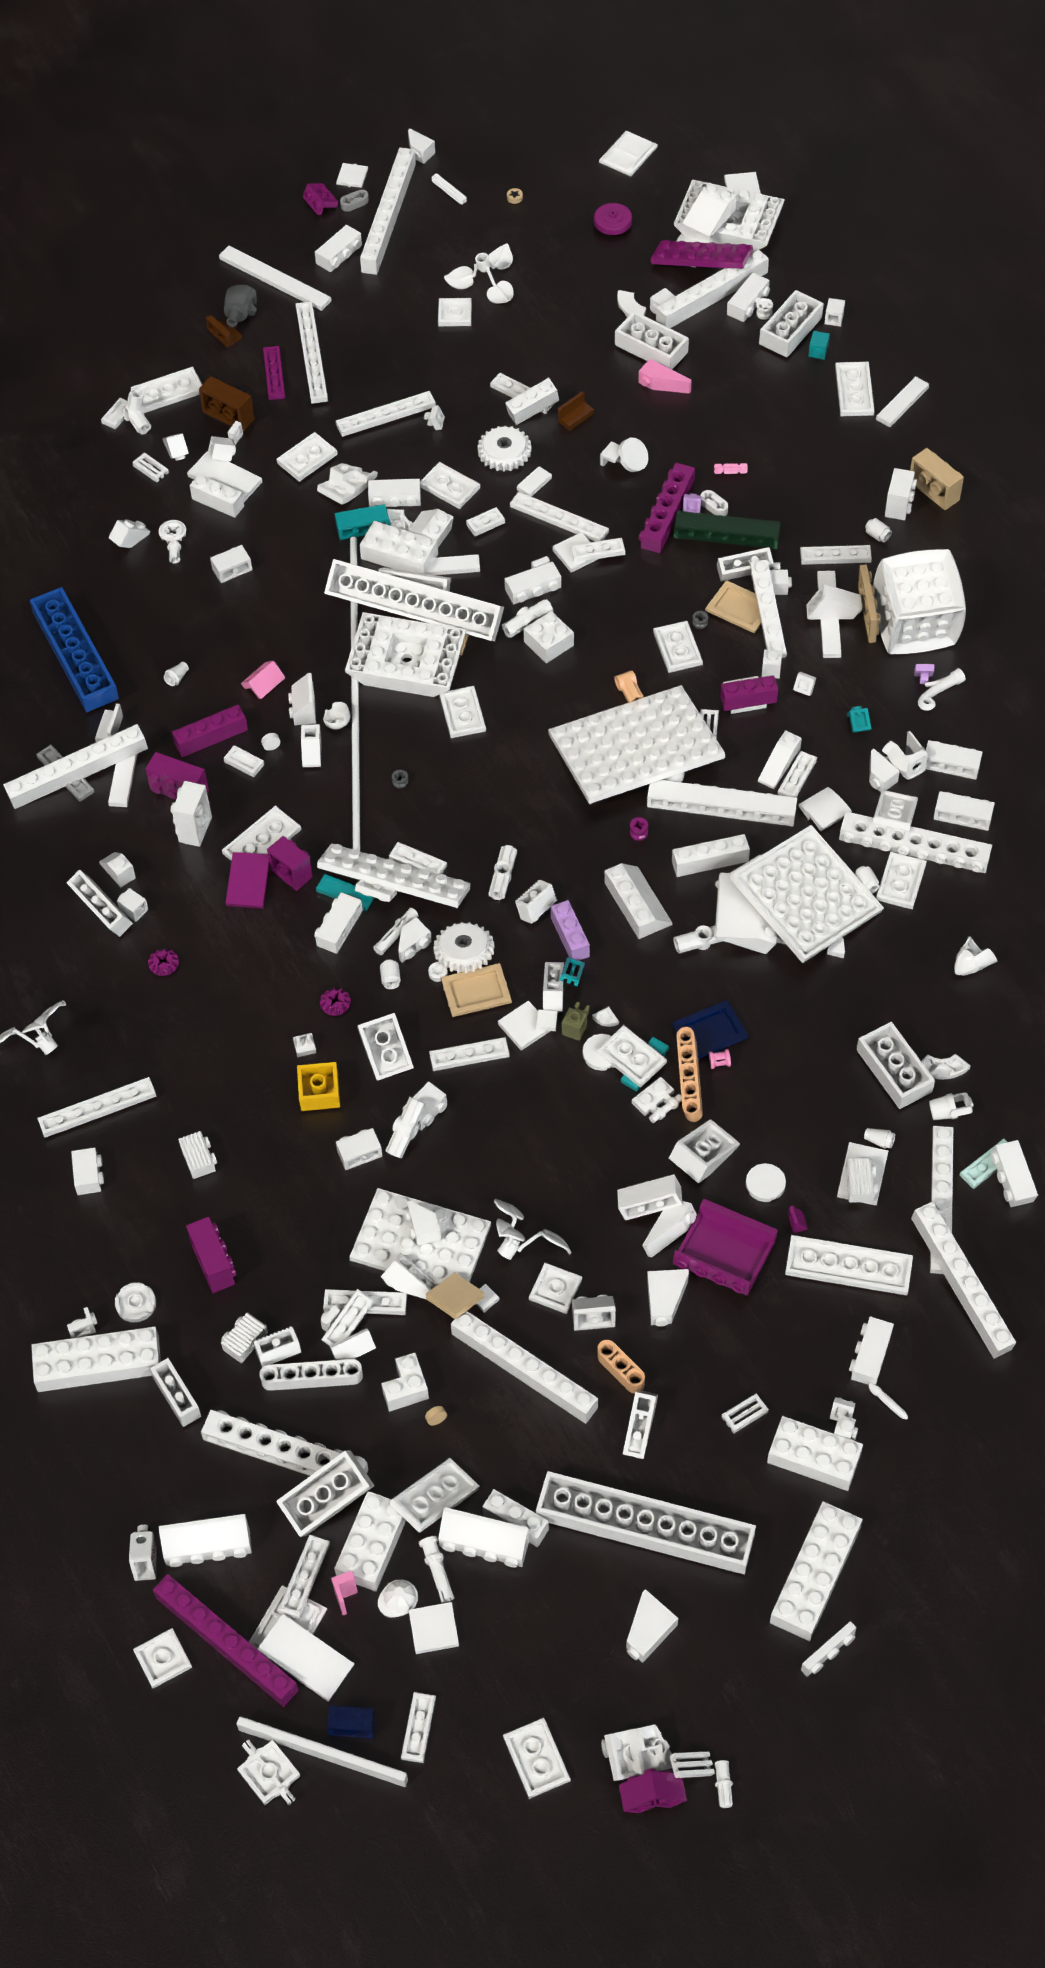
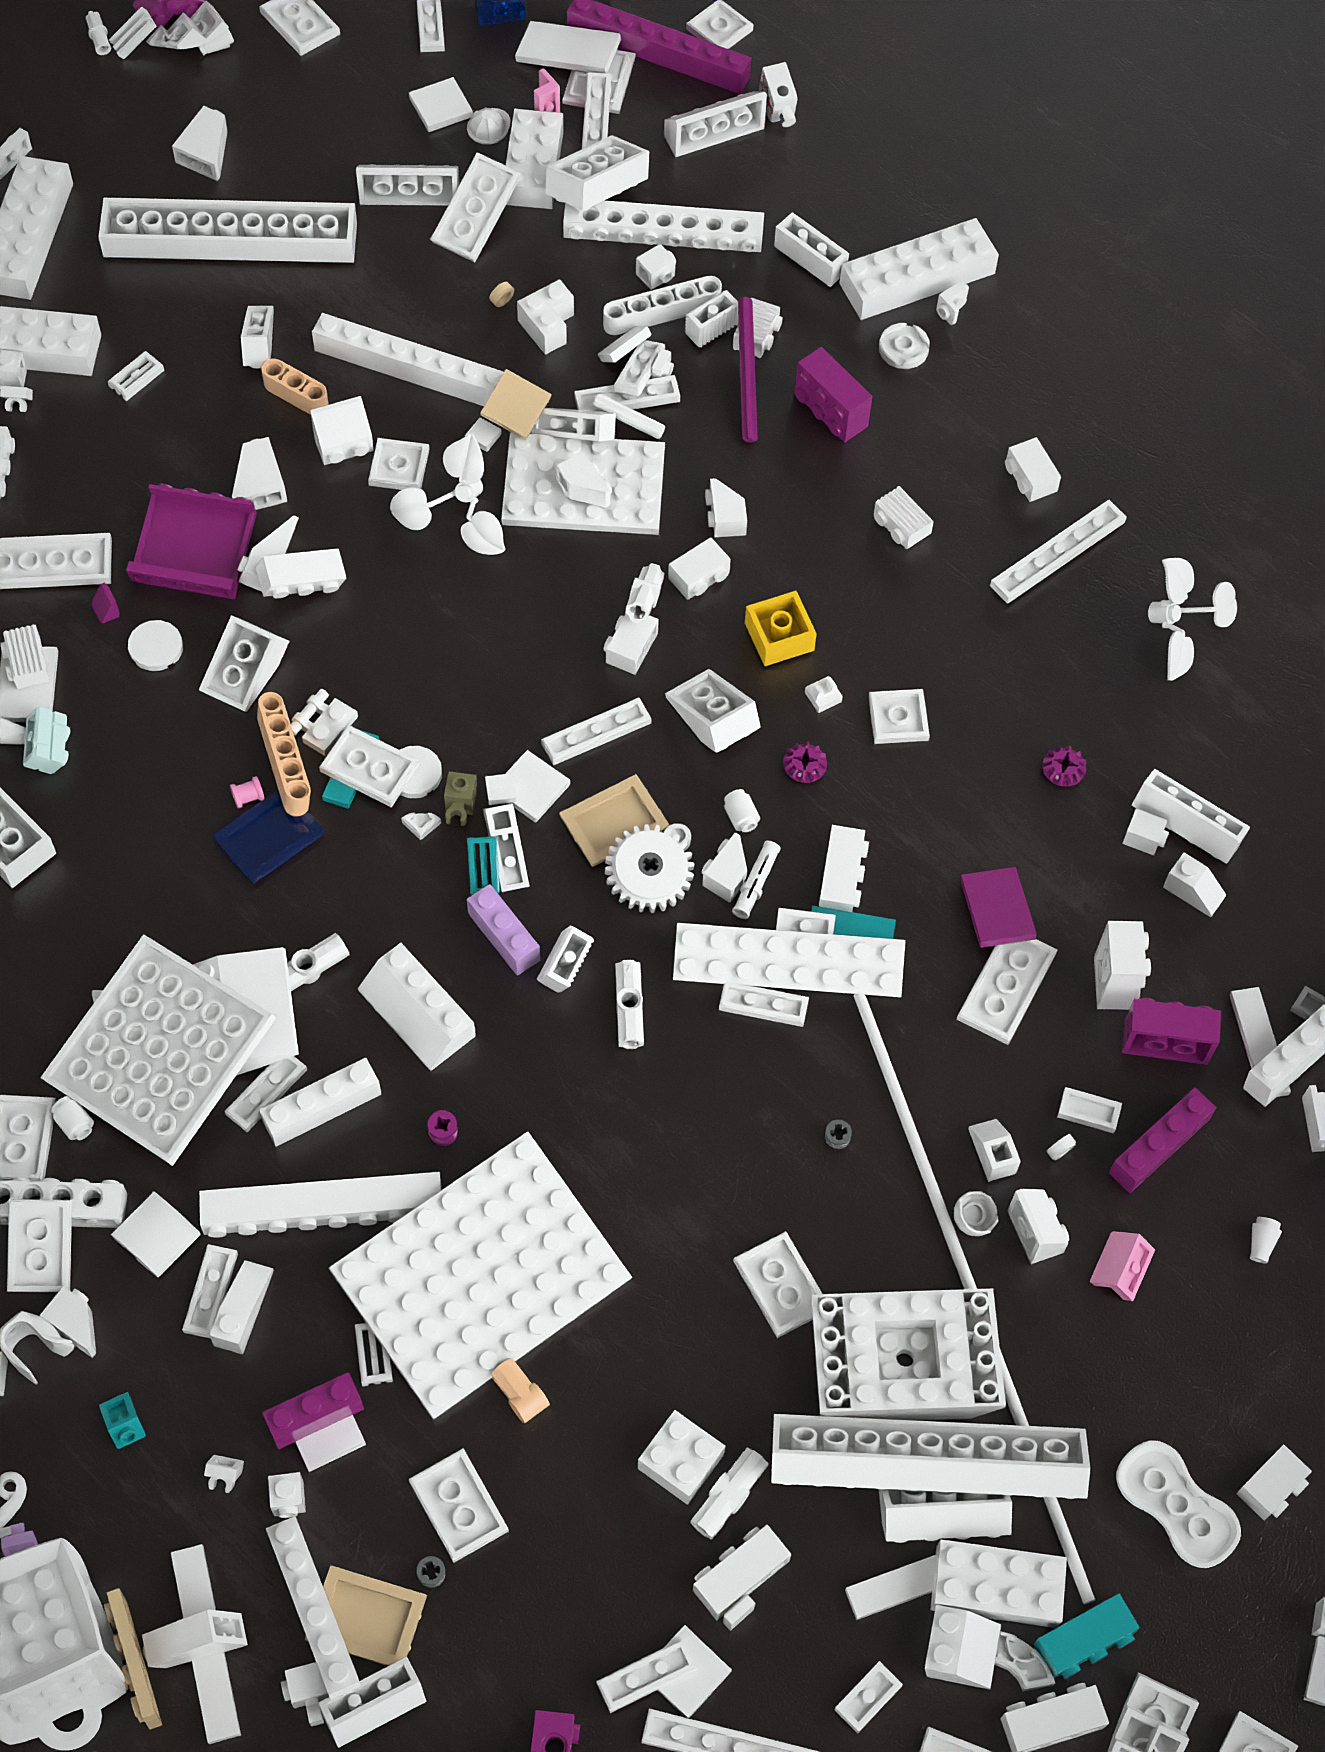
camera: 160 degrees right, 5 degrees up
(259, 1019) = (898, 716): none -> white tile
(266, 1293) = (747, 370): none -> magenta axle
(290, 862) = (945, 933): magenta brick -> none
(291, 573) = (1198, 1525): none -> white plate
(303, 1412) = (656, 266): none -> white brick
(323, 1187) = (727, 510): none -> white slope
(370, 1280) = (629, 416): none -> white axle
(434, 1560) = (449, 148): white pin -> none
(506, 1510) = (382, 210): white brick -> none
(854, 1119) = (45, 740): none -> light aqua brick

